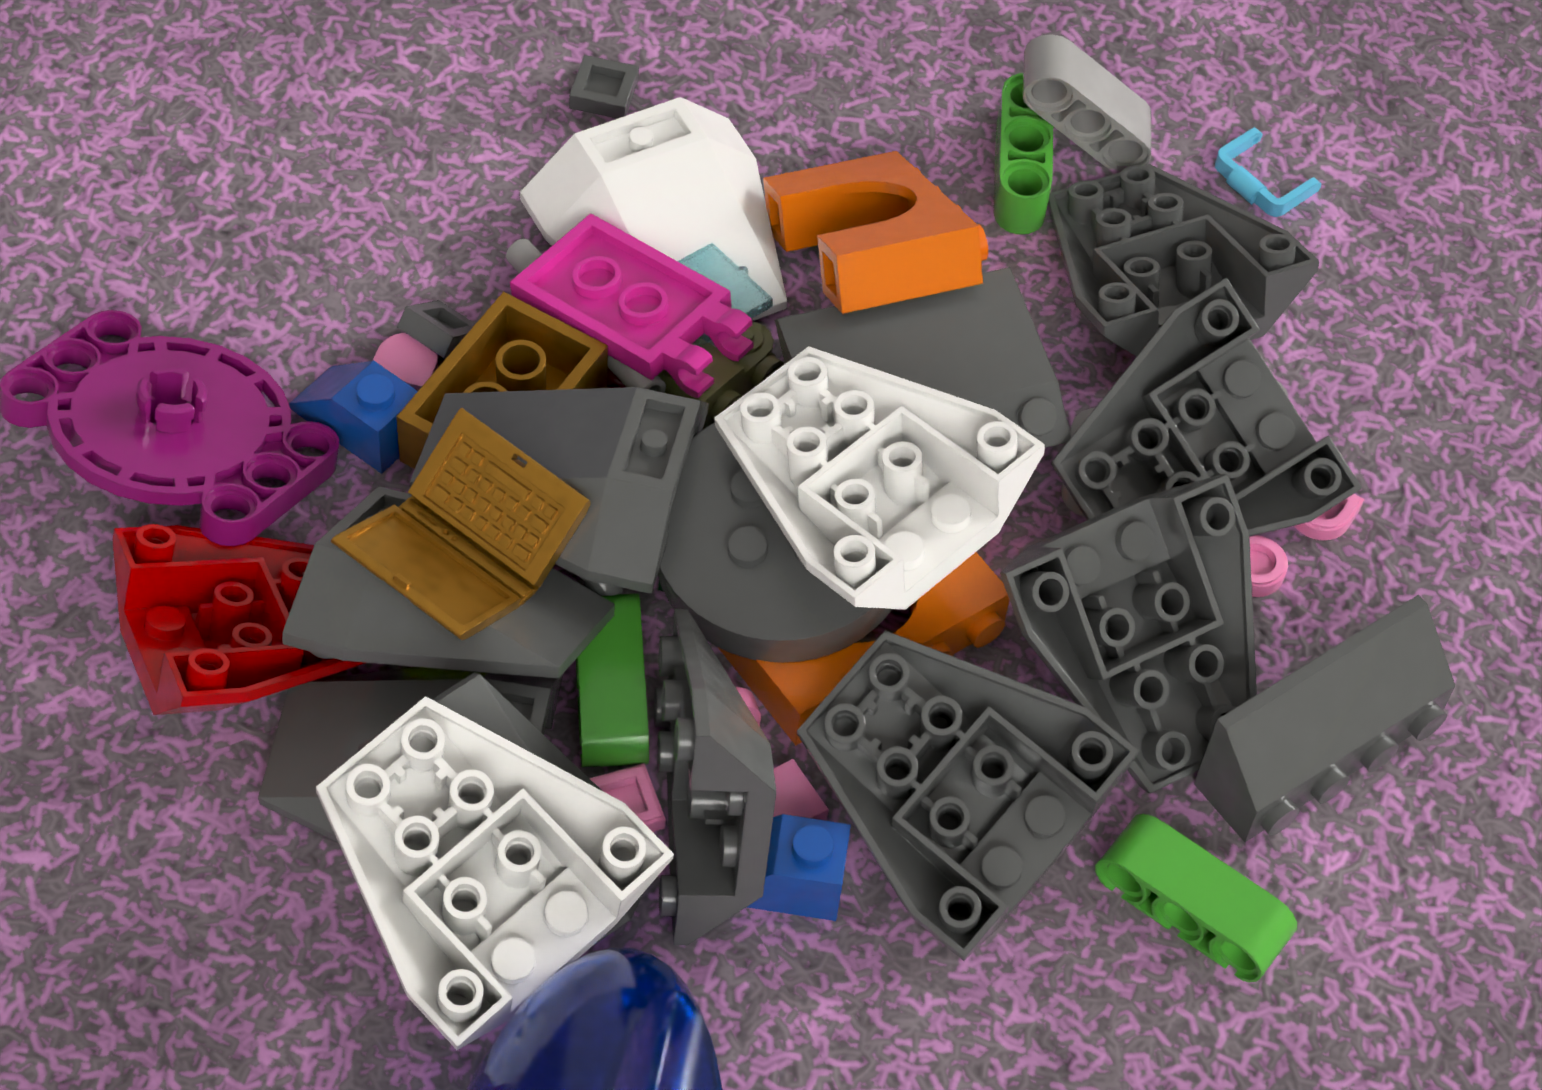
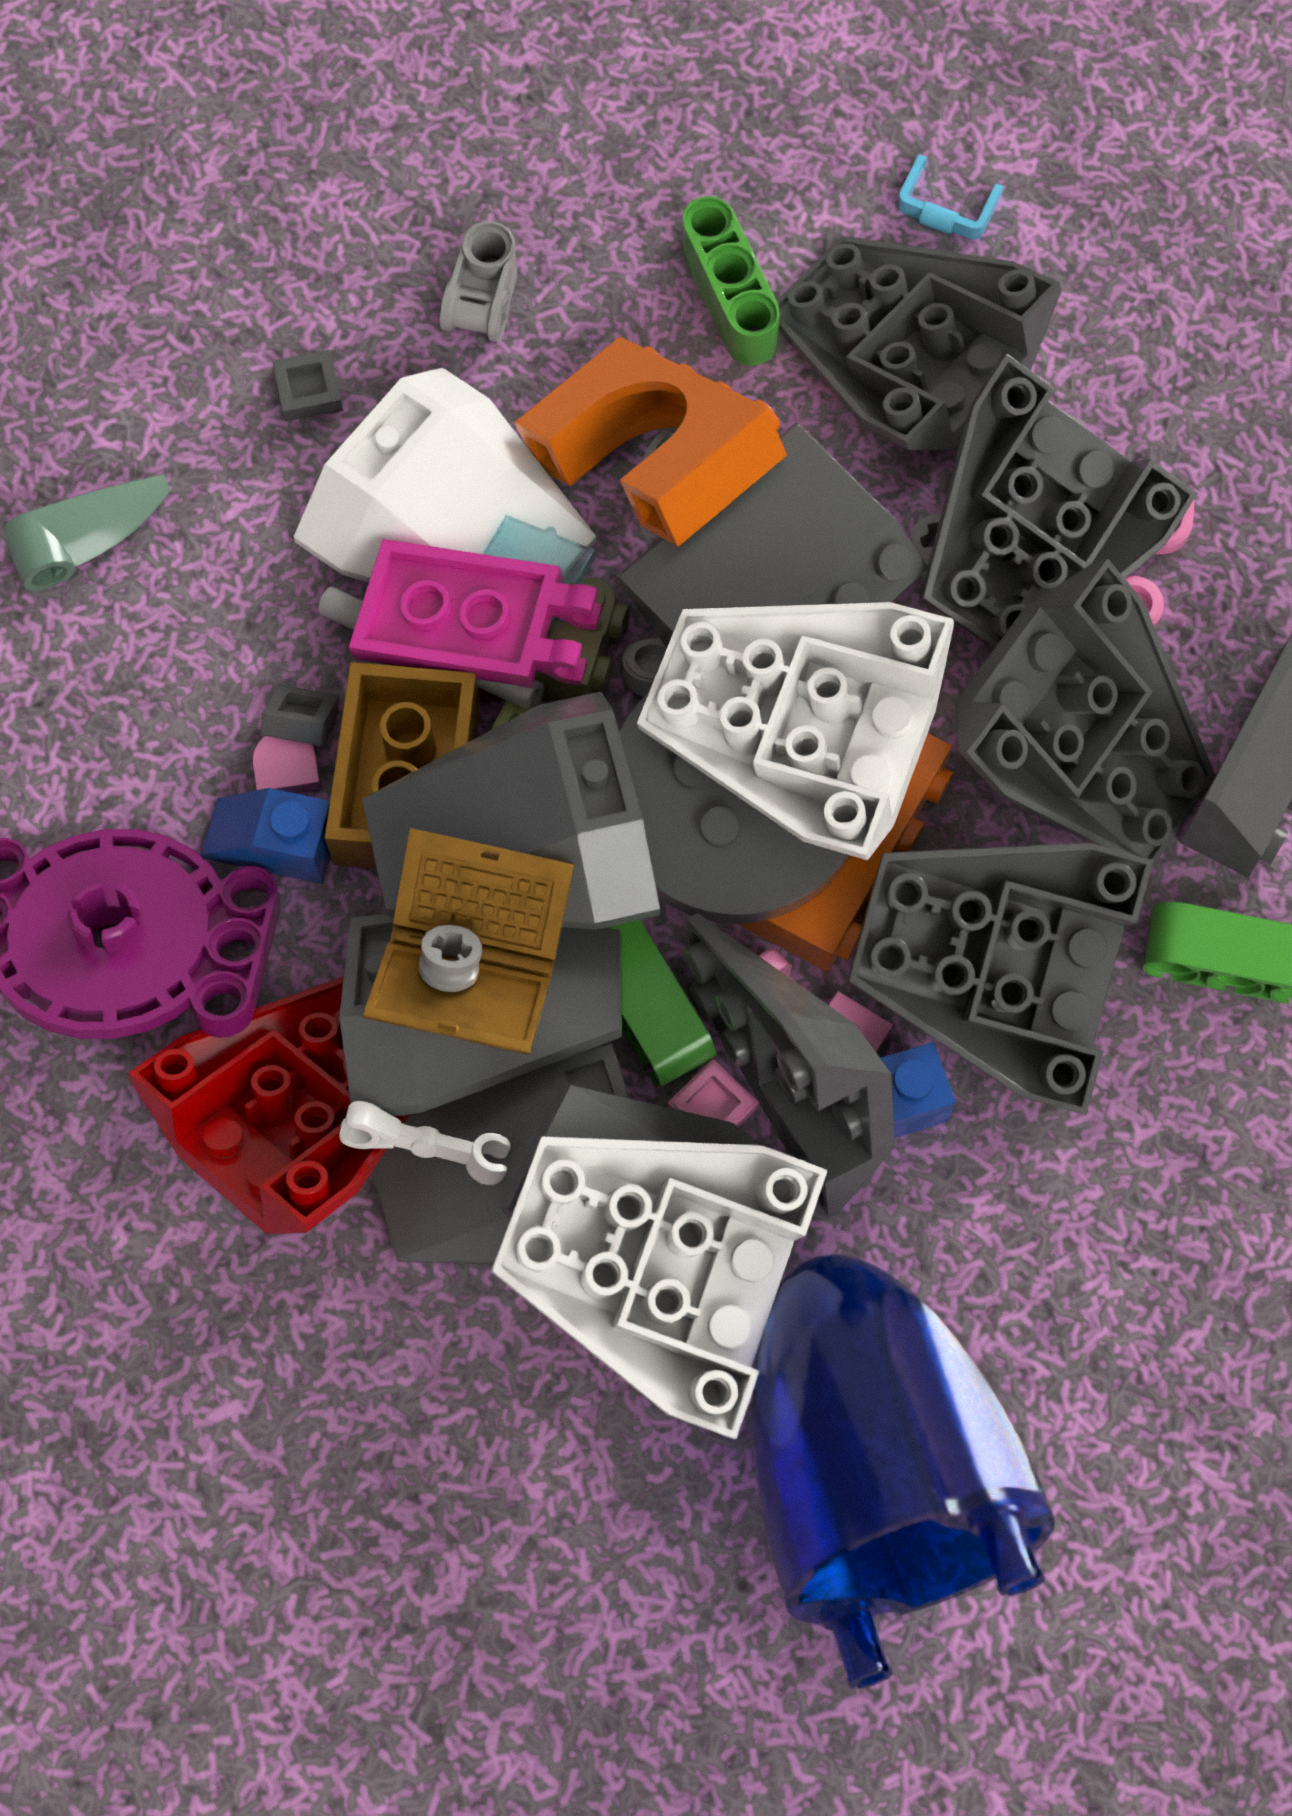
camera: 20 degrees left, 15 degrees up
(294, 654) = (371, 1127): none -> white piece
(332, 108) = (65, 534): none -> sand green piece
(438, 535) = (446, 974): none -> light grey bush
(800, 67) = (481, 292): none -> light grey piece
(1086, 102) = (768, 207): light grey beam -> none

